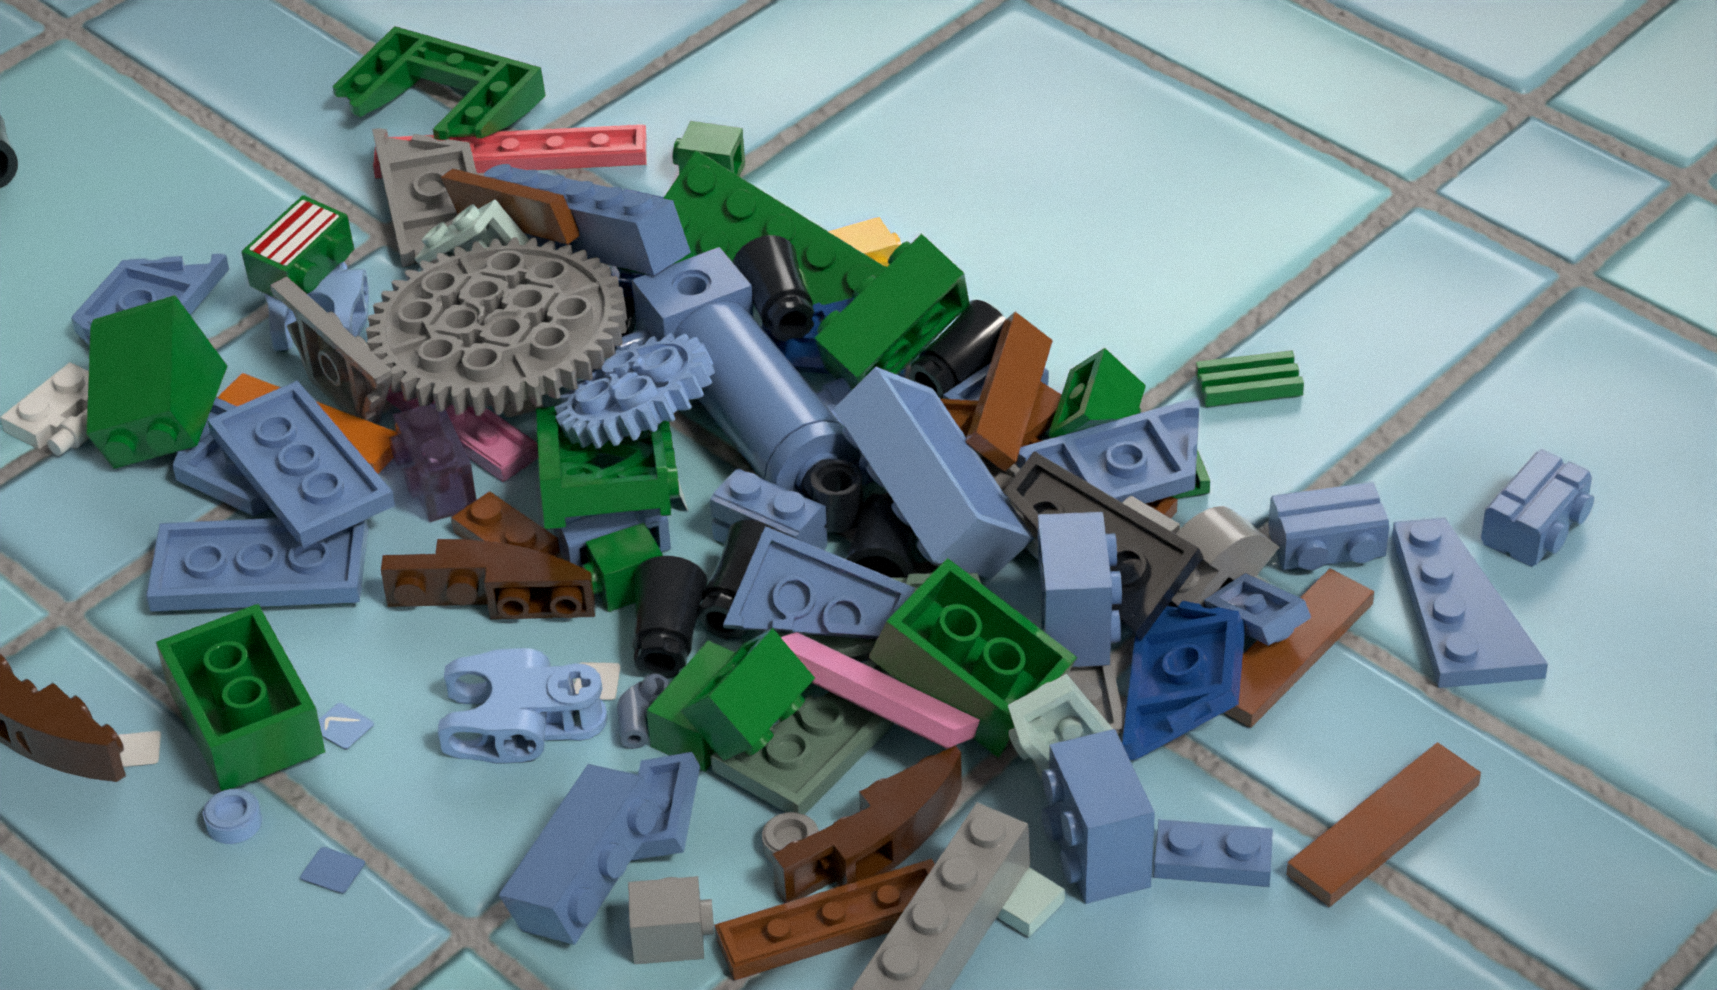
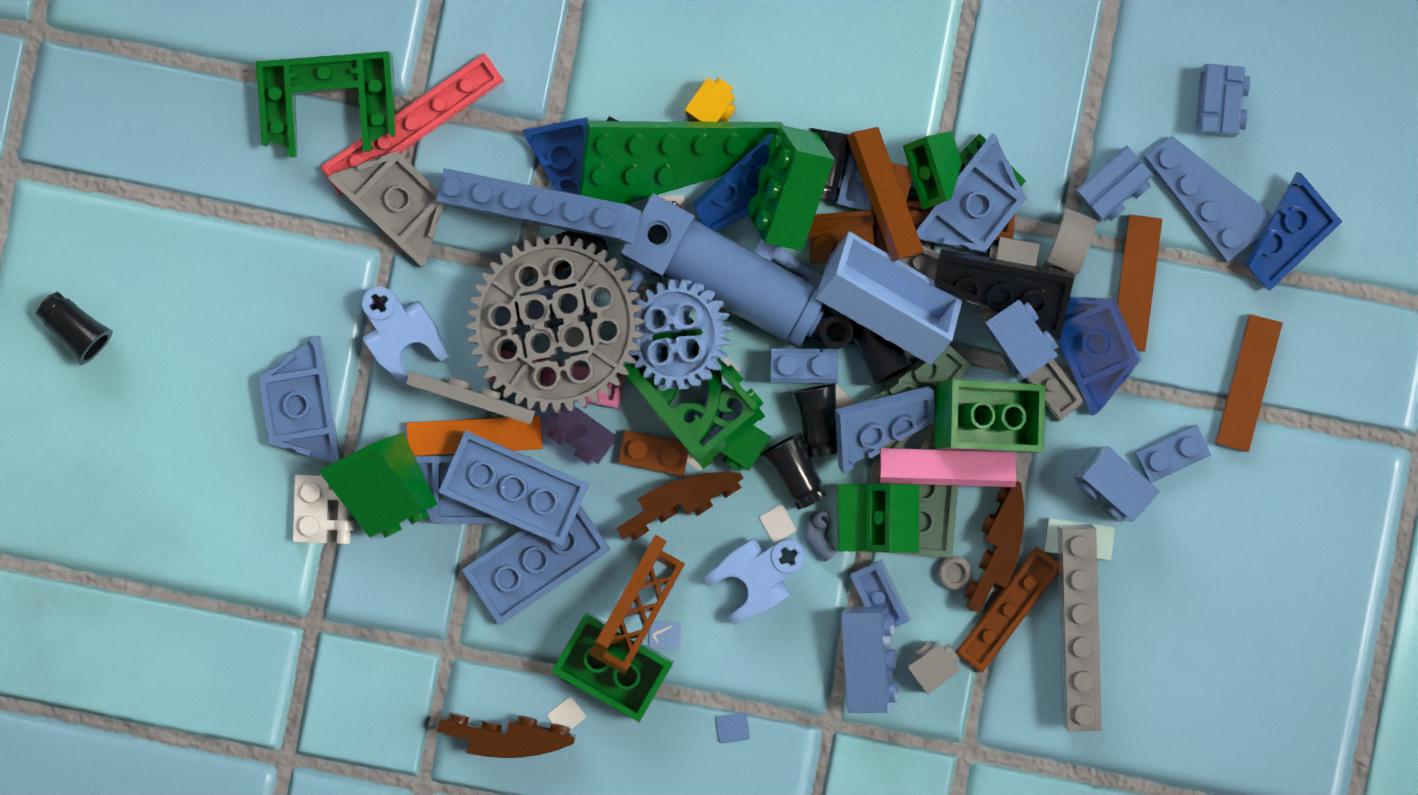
camera: 30 degrees left, 45 degrees up
(232, 816) = (657, 729): light blue tile -> none
(299, 245) = (386, 330): green brick -> none
(327, 618) = (630, 595): none -> dark orange fence
(468, 227) = (477, 255): light aqua bracket -> none
(532, 209) = (489, 220): dark orange tile -> none
(715, 141) = (550, 64): brick -> none
(777, 286) = (702, 198): black plant -> none
(1049, 716) = (1061, 453): light aqua bracket -> none
(1249, 378) = (1020, 56): green tile -> none
(1265, 609) = (1112, 278): medium blue plate -> none
(1562, 678) = (1292, 232): none -> blue wing

